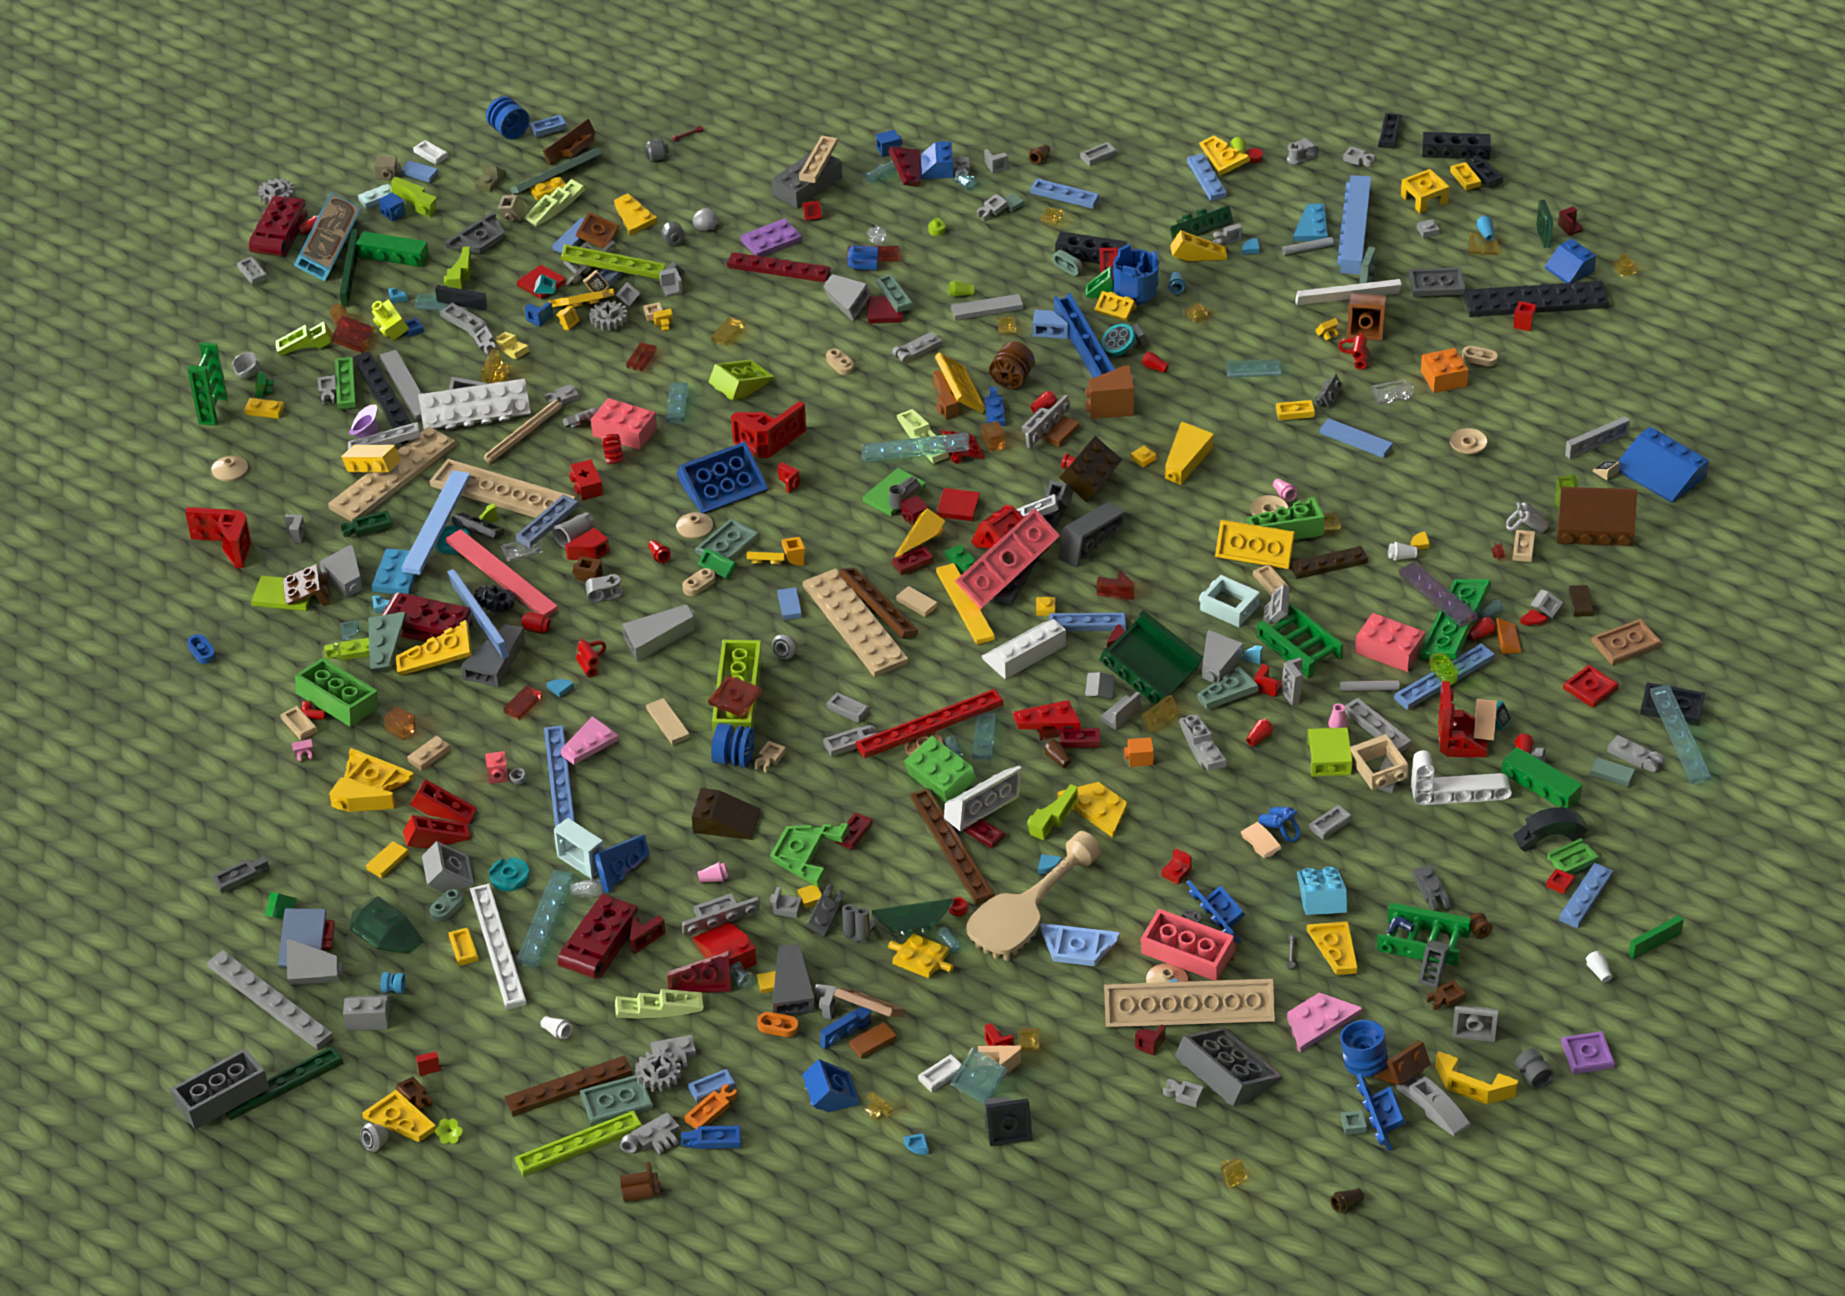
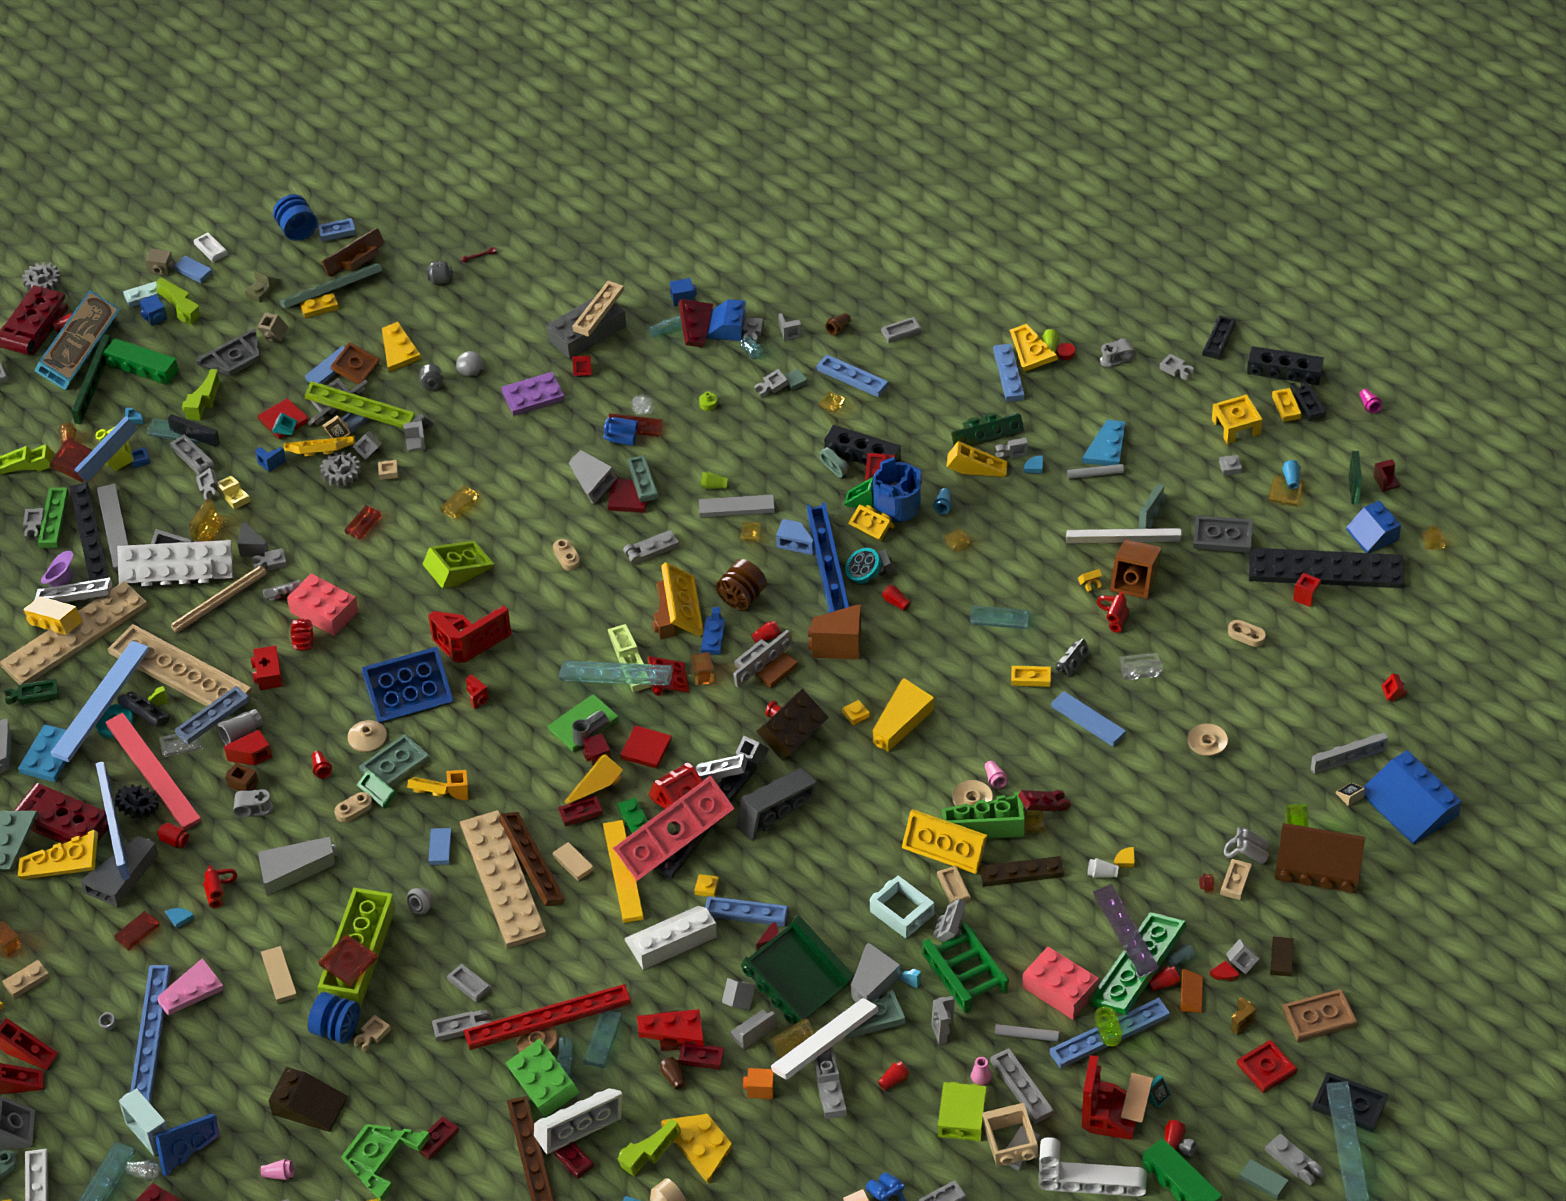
camera: 10 degrees right, 5 degrees up
(379, 603) = (21, 789): medium azure tile -> none
(384, 318) = (106, 449): none -> medium blue tile
(497, 767) = (88, 1008): coral brick -> none
(509, 874) = (70, 1139): teal tile -> none
(542, 382) = (250, 542): none -> dark grey slope
(555, 203) = (323, 323): yellowish green slope -> none
(568, 317) = (298, 466): yellow tile -> none
(663, 318) = (395, 479): yellow tile -> none
(677, 402) = (385, 583): clear light blue tile -> none
(779, 267) = (532, 430): dark red plate -> none
(1116, 588) = (788, 875): clear red slope -> none
(1190, 708) = (824, 1038): none -> white tile
(1265, 683) = (916, 1014): red panel -> none
(1336, 503) = (1044, 800): none -> dark red hinge
(1355, 220) = (1152, 451): medium blue brick -> none
(1444, 370) = (1203, 647): orange brick -> none
(1540, 165) = (1371, 402): none -> dark pink cone
(1560, 649) = (1243, 1017): none -> pearl gold bracket
(1623, 383) = (1394, 688): none -> red tile

